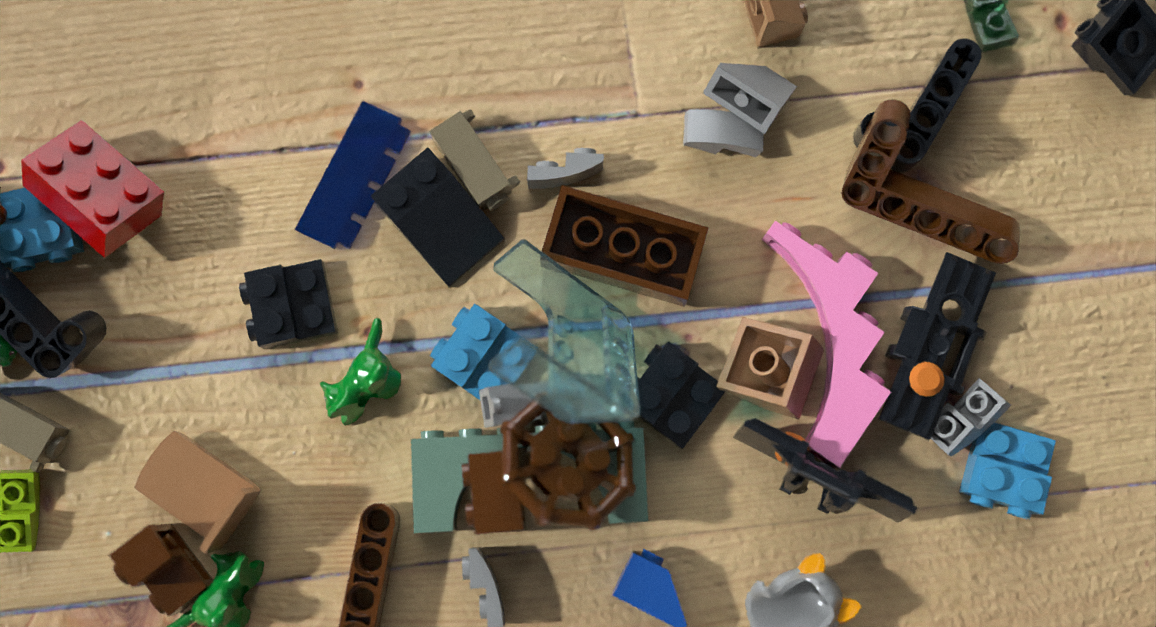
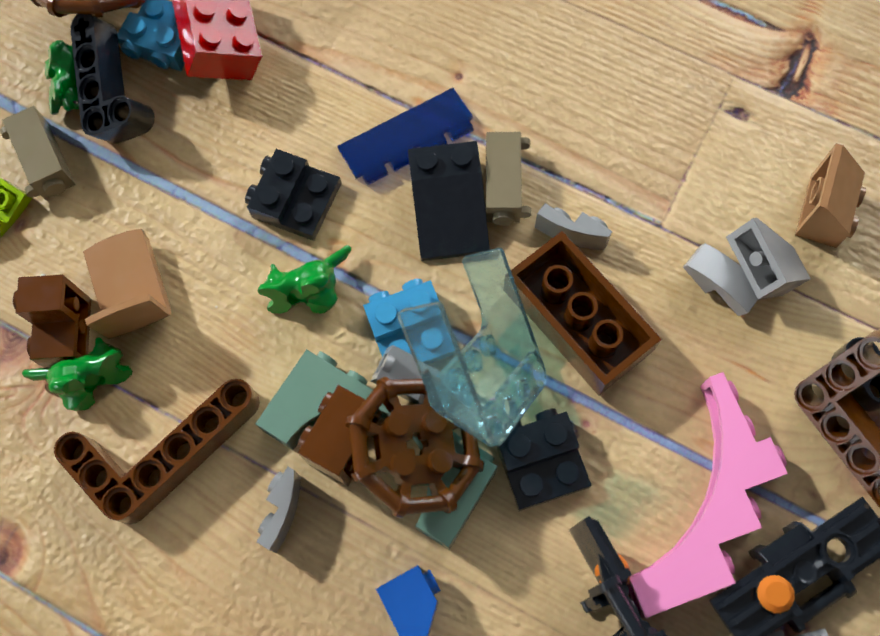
camera: 40 degrees right, 10 degrees down
(771, 367) = (641, 492): medium nougat slope -> none

